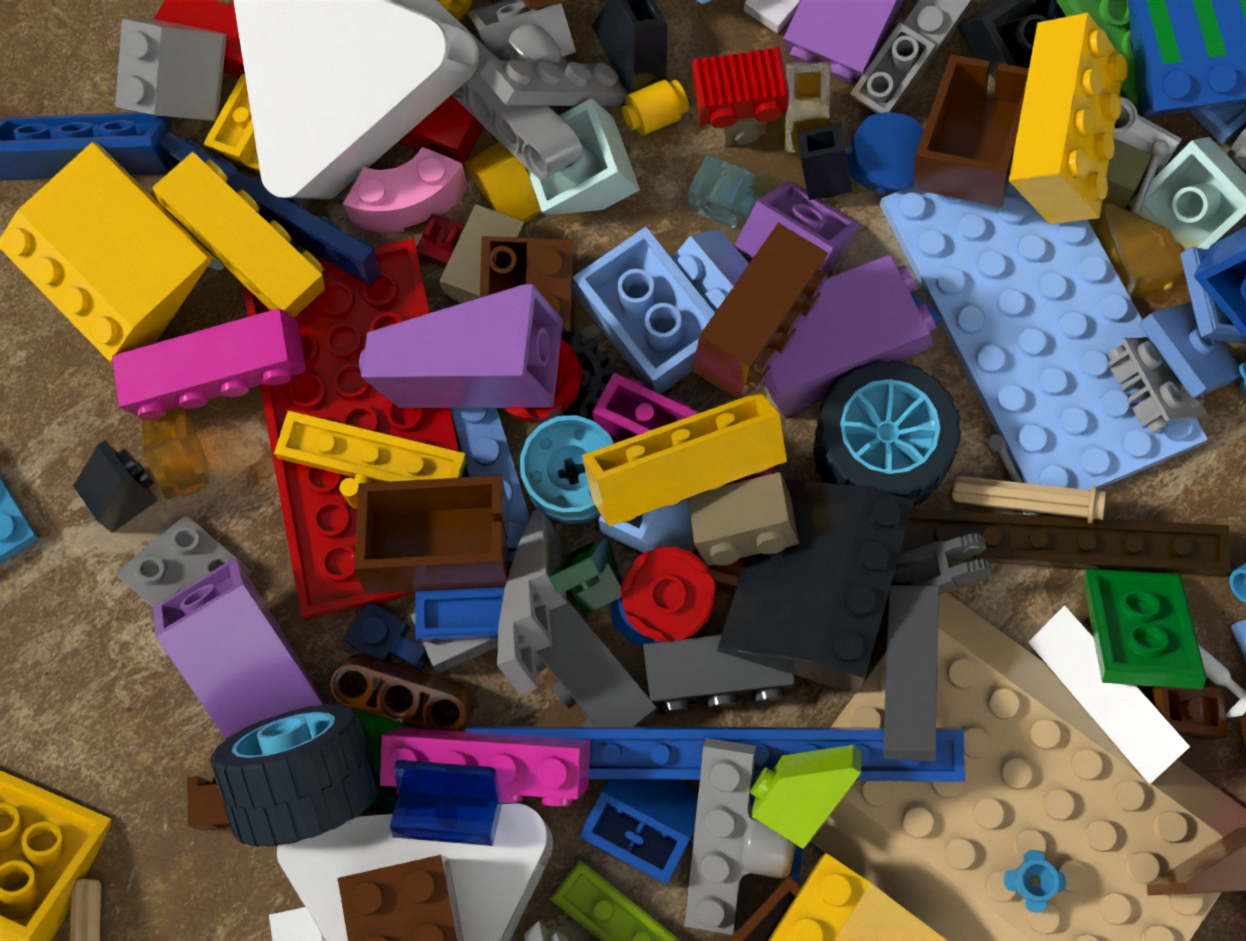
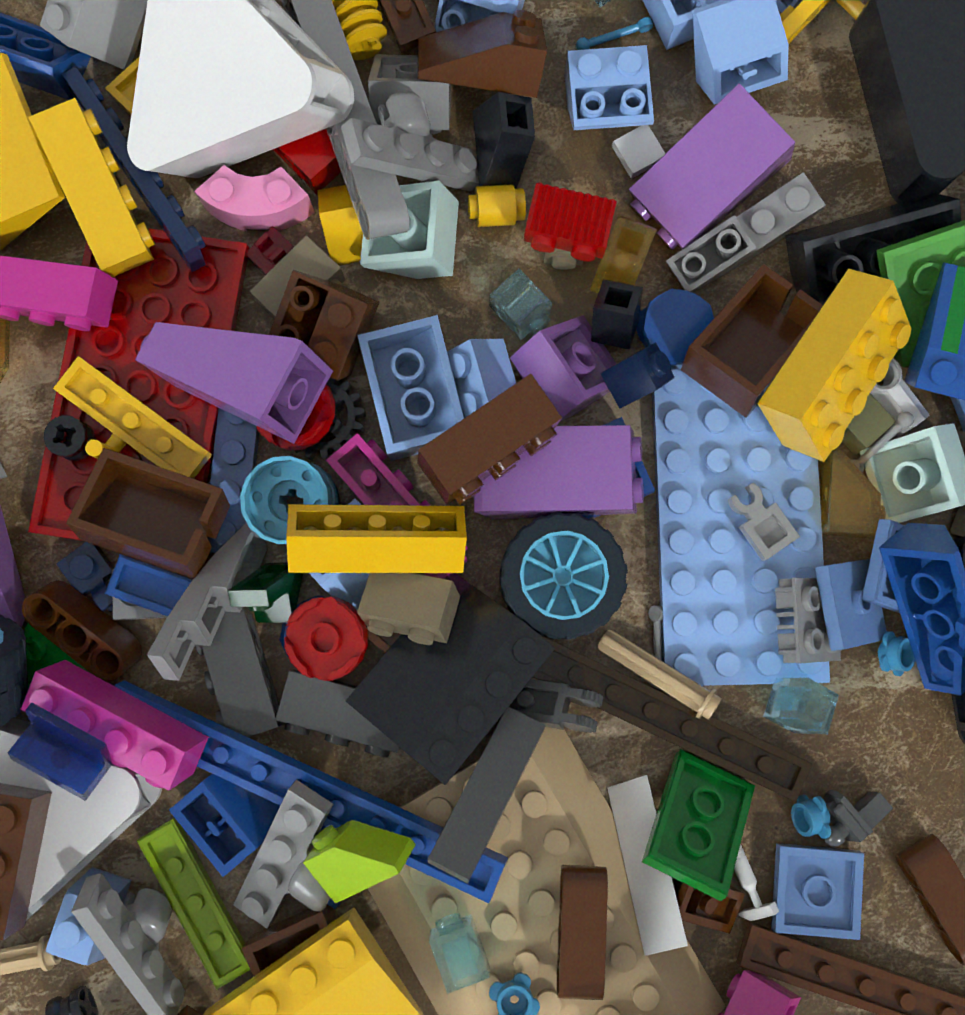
camera: 15 degrees right, 10 degrees up
(317, 506) = (77, 437): none -> black wheel
(873, 210) = (638, 375): none -> dark blue brick
(955, 850) = (458, 952): none -> clear light blue brick
(1071, 307) = (767, 527): none -> light grey plate
(1074, 778) = (582, 932): none -> reddish brown beam
(1189, 469) = (801, 705): none -> clear light blue brick

